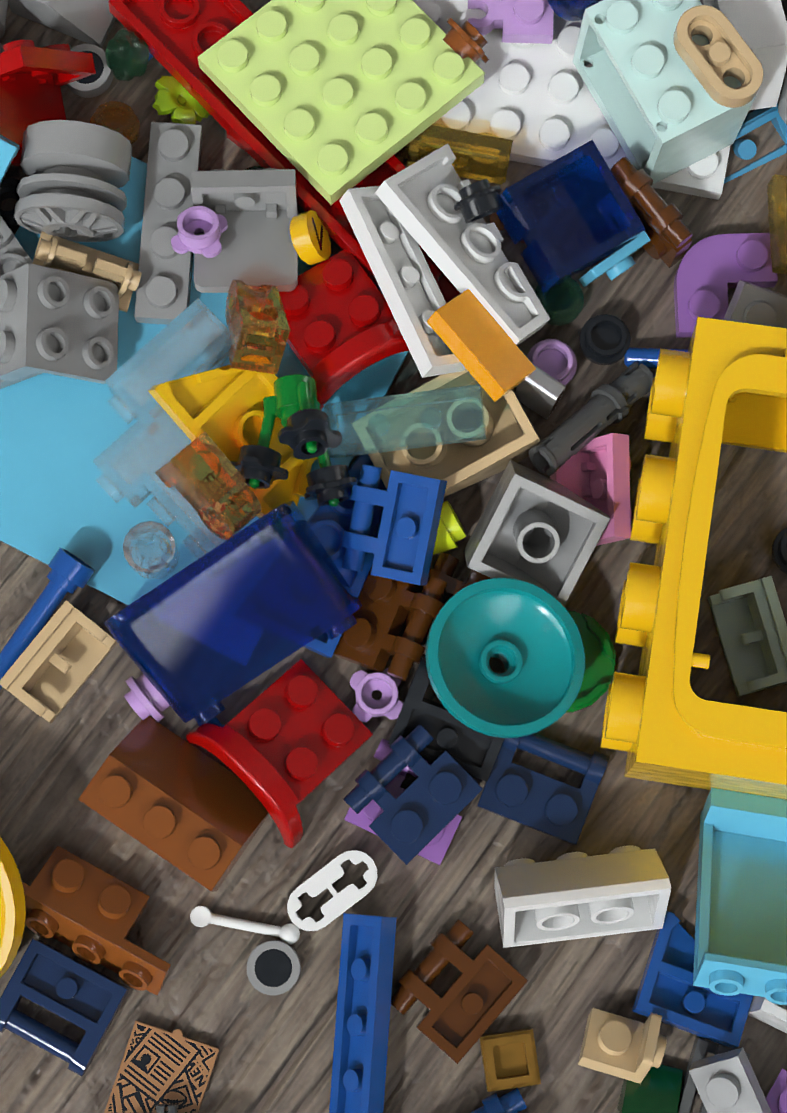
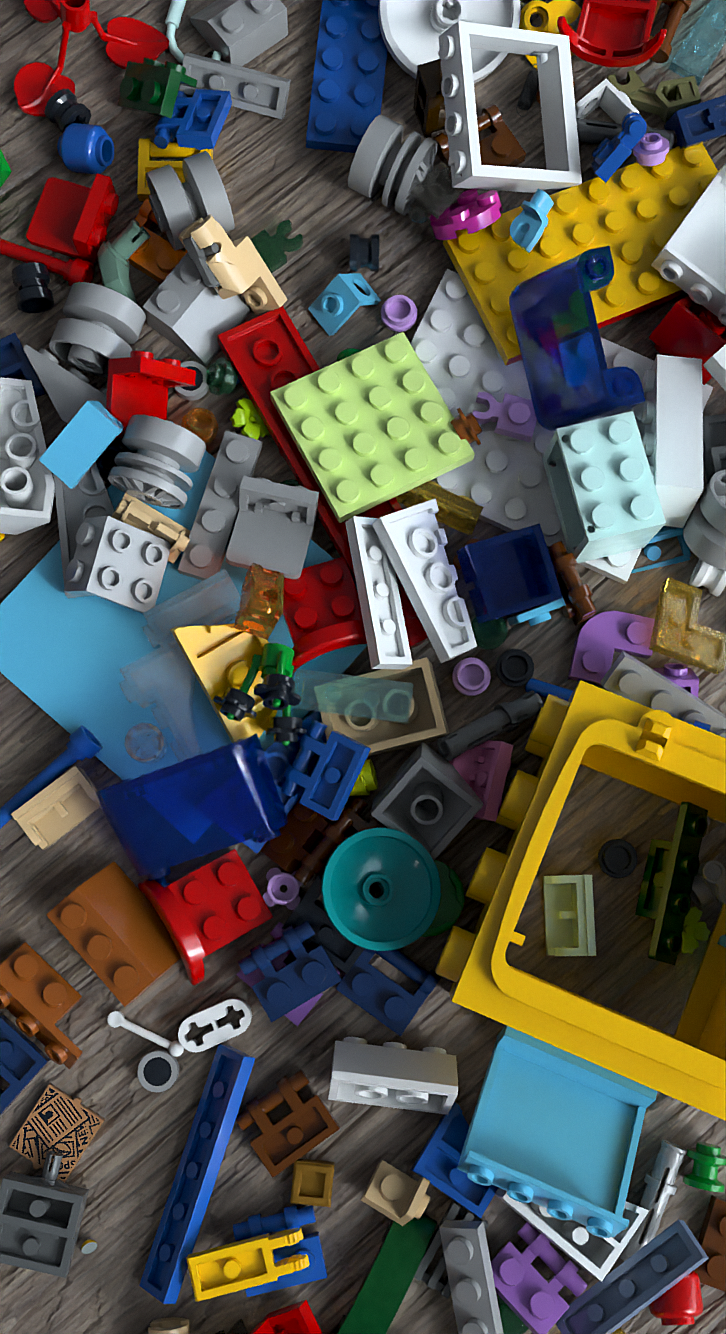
camera: 10 degrees right, 0 degrees up
(145, 698) = (113, 851): lavender plate -> none
(199, 220) = (238, 511): lavender plate -> none
(211, 487) = (198, 711): clear orange leg -> none
(310, 238) = (318, 543): yellow tile -> none
(479, 200) = (446, 548): black plate -> none
(481, 345) = (421, 654): light orange tile -> none
(540, 392) = (457, 695): flat silver piece -> none
(722, 57) = (645, 490): tan plate -> none

